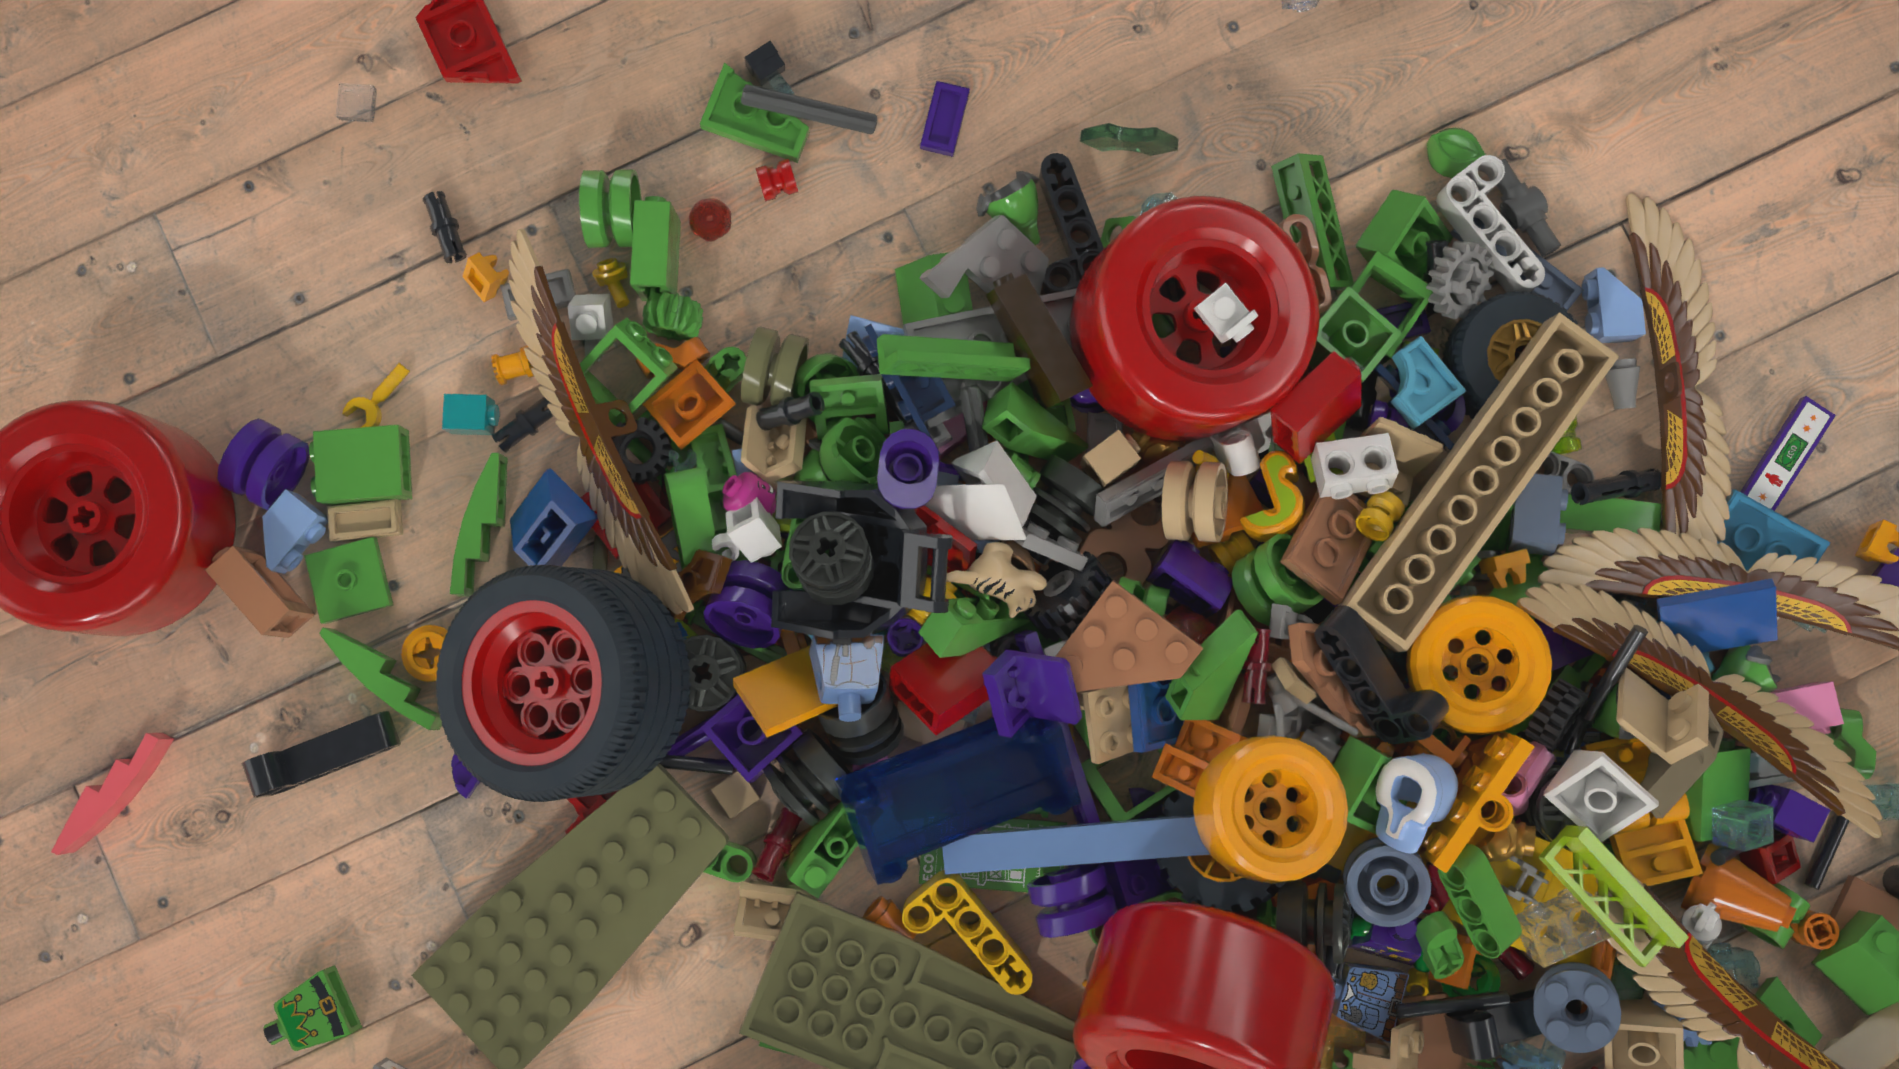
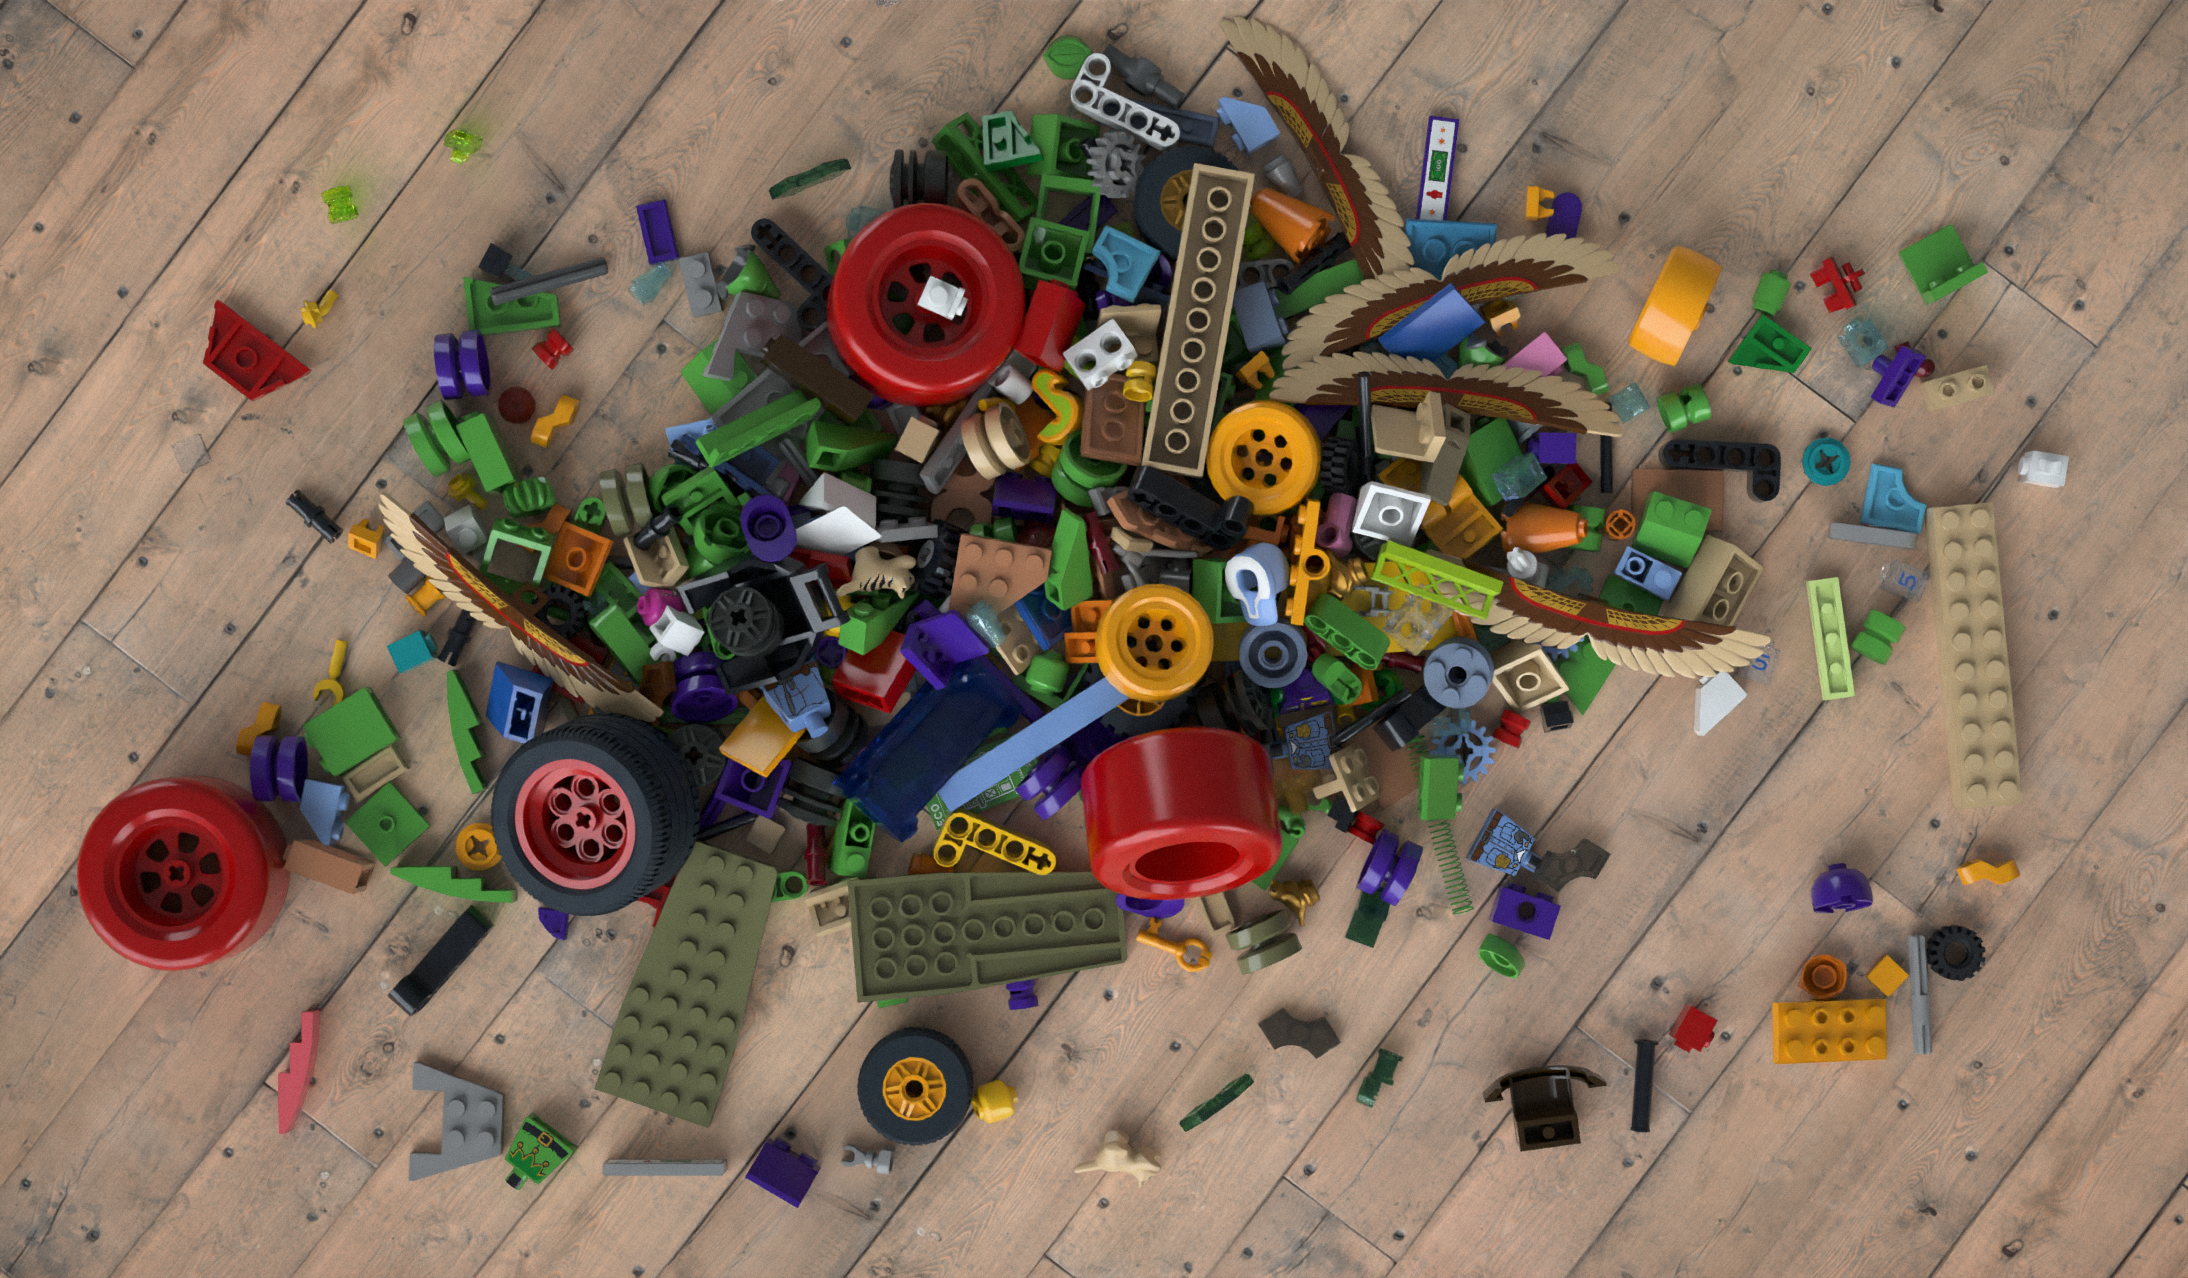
camera: 25 degrees left, 5 degrees up
(262, 943) = (470, 1122): none -> light grey wing
(281, 409) = (266, 722): none -> light orange piece
(504, 334) = (406, 576): none -> dark grey beam
(554, 24) = (314, 313): none -> yellow plate
(675, 146) = (462, 365): none -> dark purple wheel
(731, 254) = (547, 426): none -> light orange piece
(908, 165) = (649, 284): none -> clear light blue cone
(961, 193) = (700, 285): none -> light grey plate
(1092, 690) = (985, 622): none -> clear light blue cone
(1126, 777) = (1047, 673): none -> bright green head
(1242, 188) = (919, 181): none -> pearl dark grey wheel
(1353, 203) = (1007, 142): none -> wing
(1614, 435) = (1291, 222): none -> orange cone
(1792, 640) = (1501, 313): none -> light orange tile
(1825, 1001) = (1647, 573): none -> light blue slope

